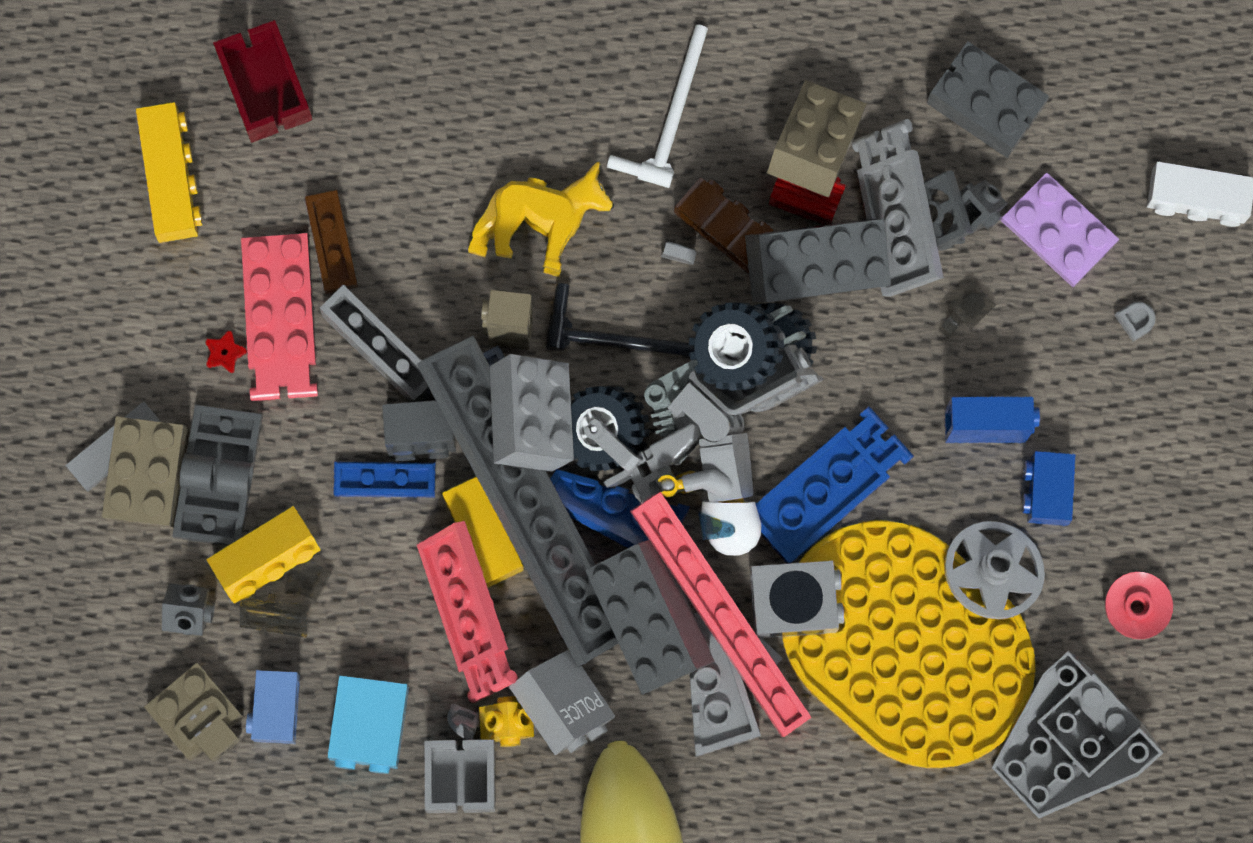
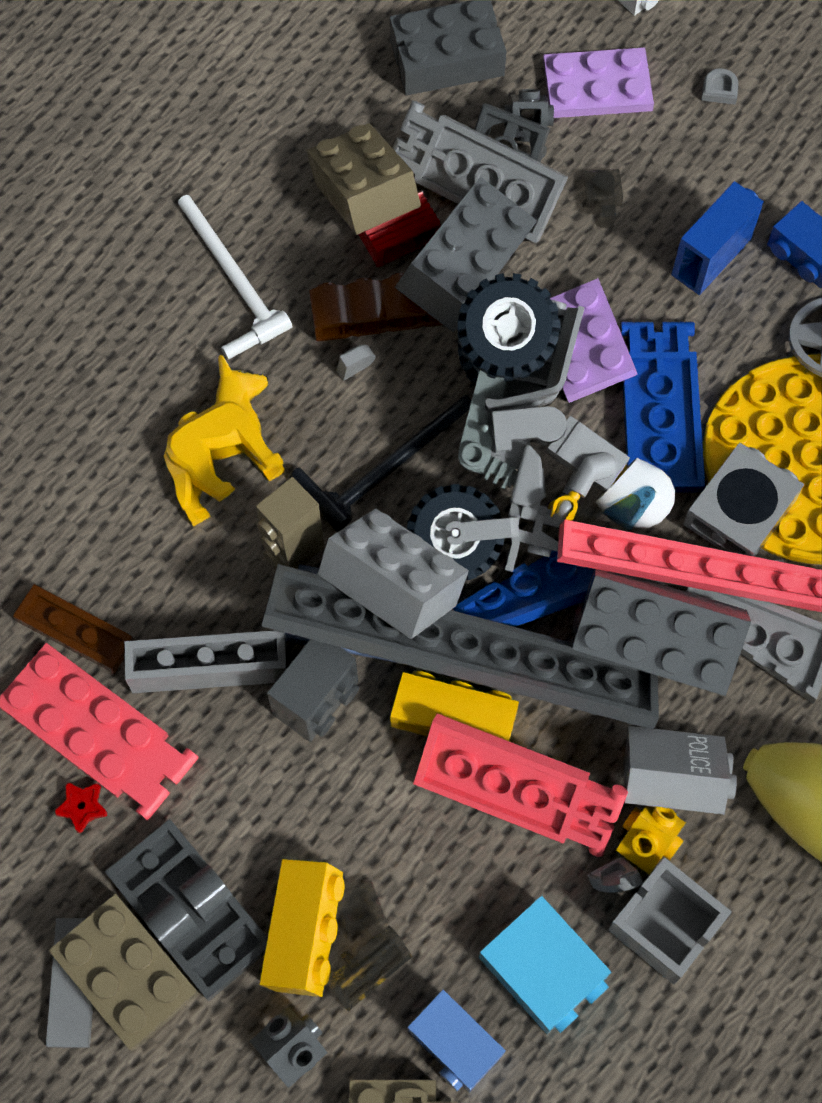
camera: 45 degrees left, 10 degrees down
(384, 479) = (327, 762): blue tile -> none
(833, 404) = (599, 350): none -> lavender plate

